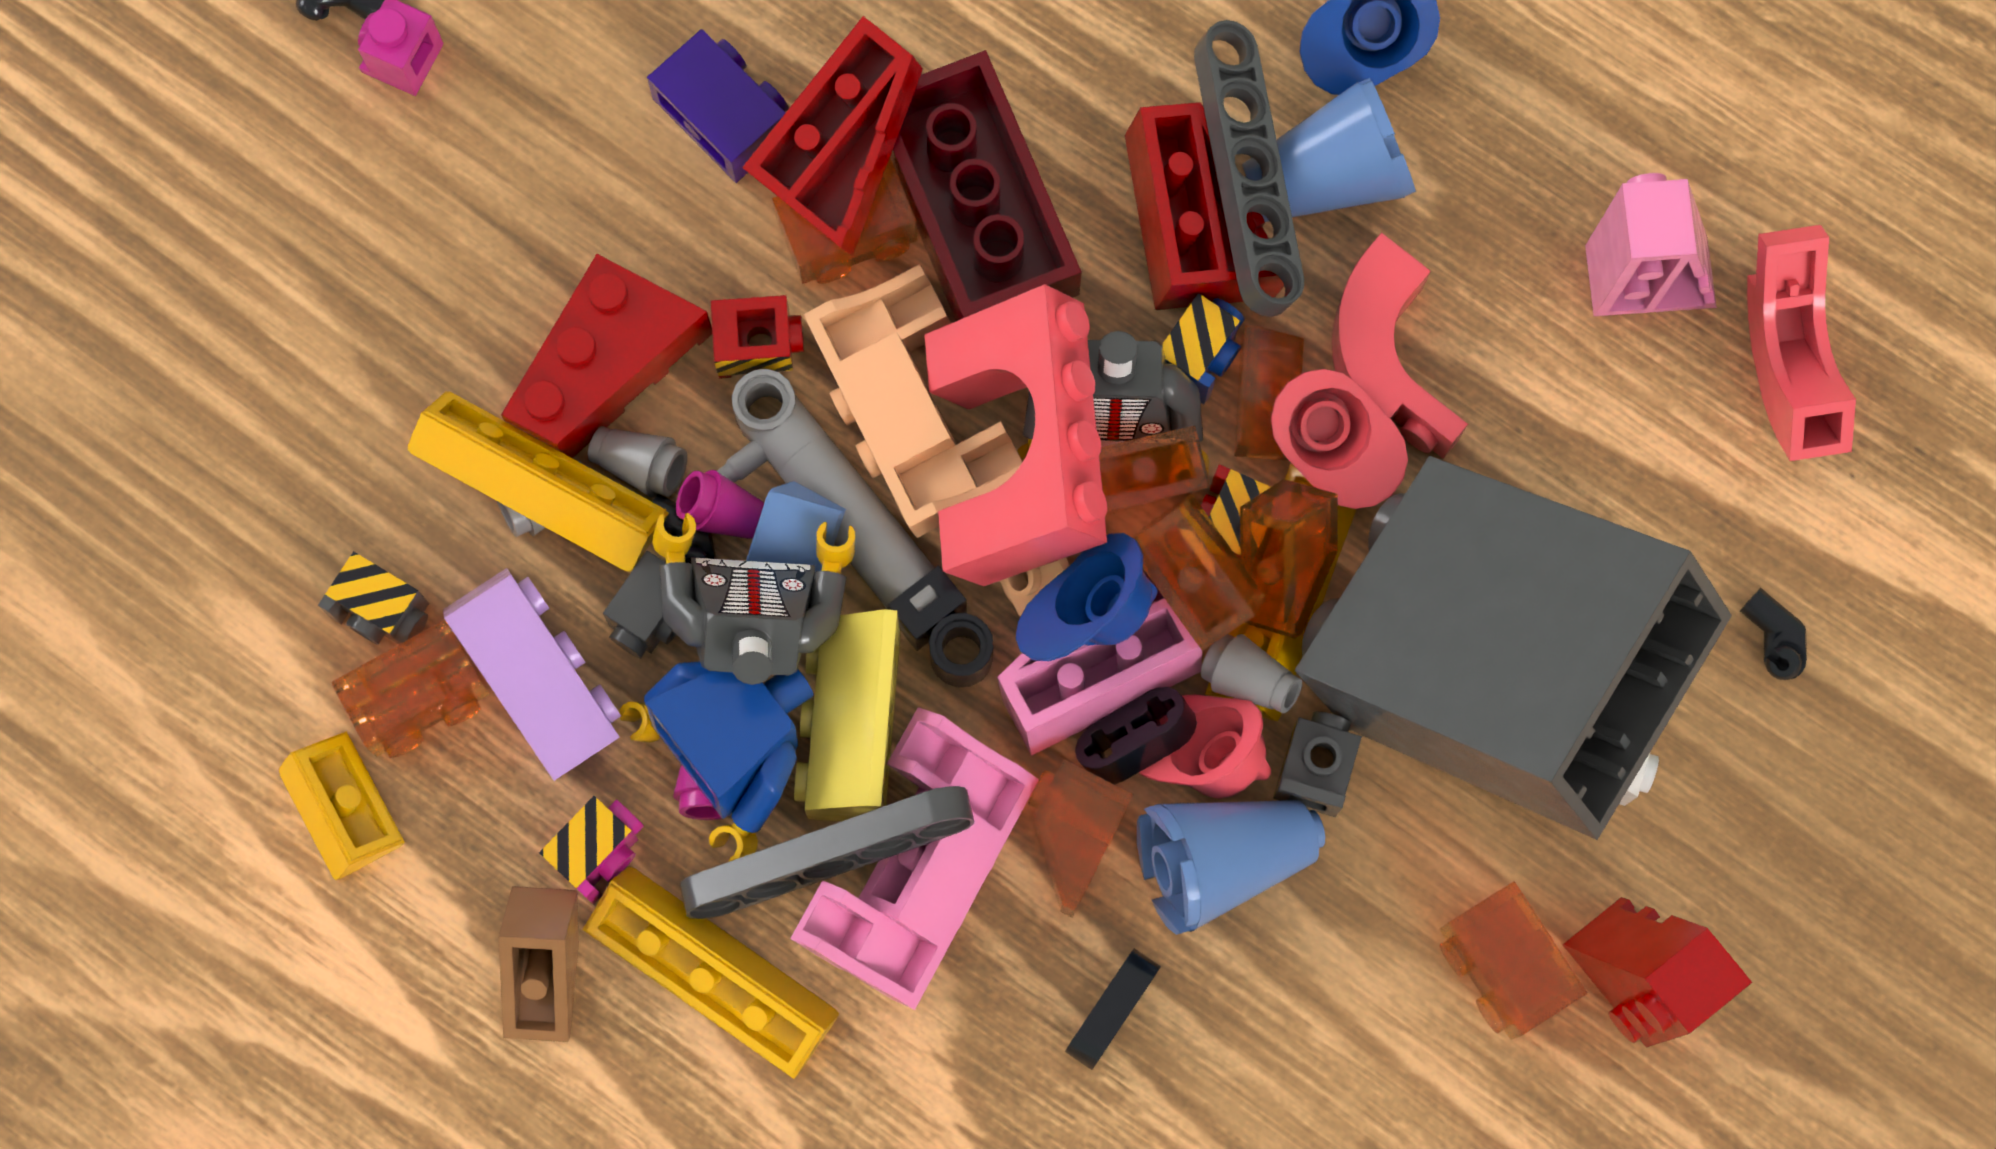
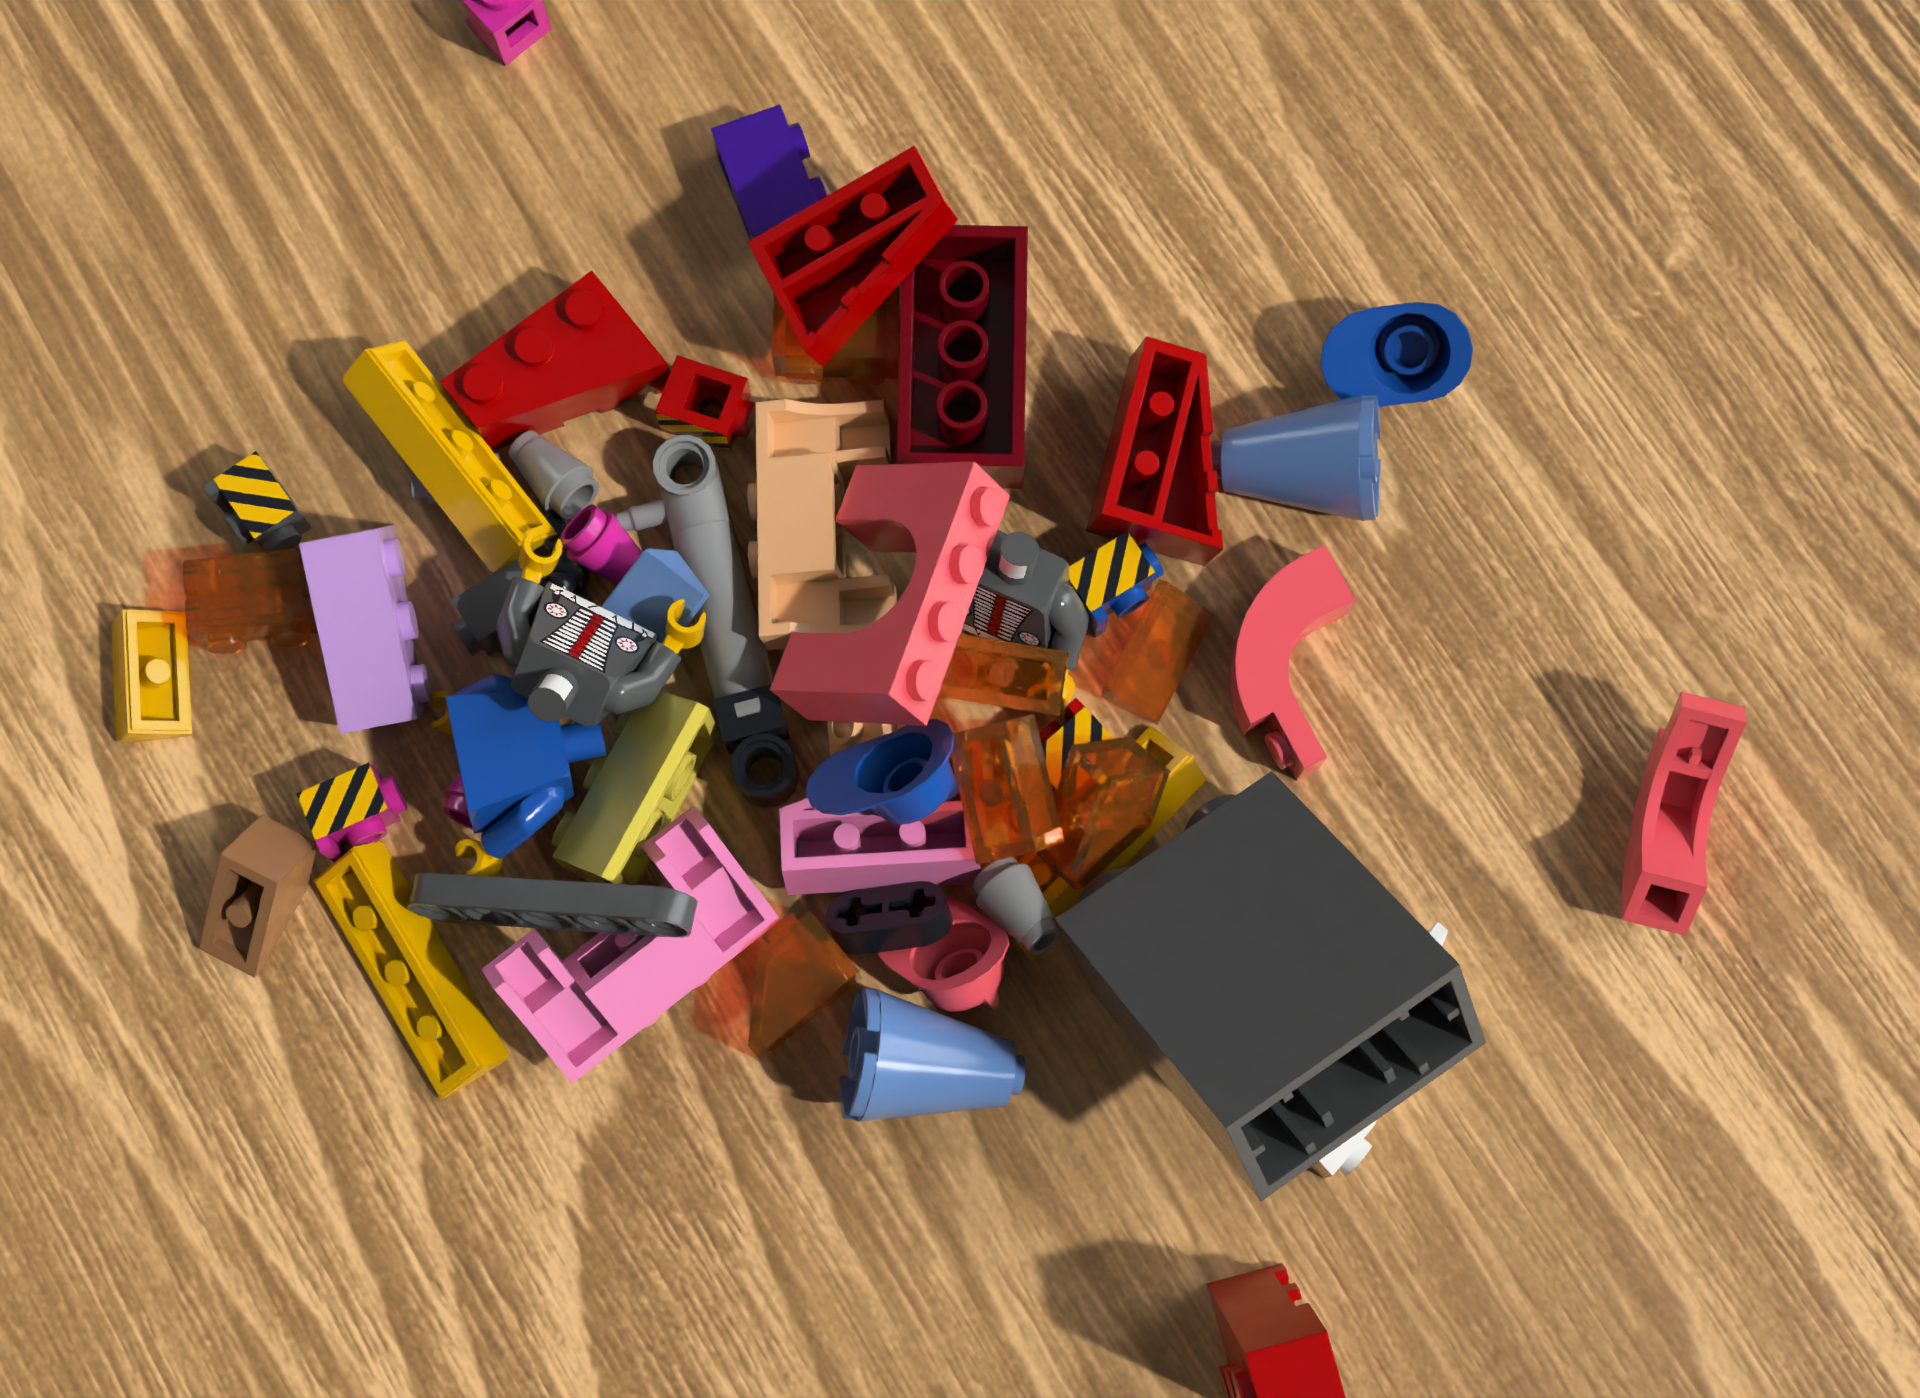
camera: 25 degrees right, 0 degrees up
(1112, 1009) = (756, 1161): black beam -> none
(1237, 192) = (1207, 457): dark grey beam -> none
(1314, 786) = (1043, 1040): dark grey brick -> none
(1339, 438) = (1199, 720): coral piece -> none
(1510, 962) = (1146, 1280): clear orange brick -> none
(1650, 251) = (1576, 666): bright pink wedge -> none
(1783, 635) = (1545, 1083): black arm -> none

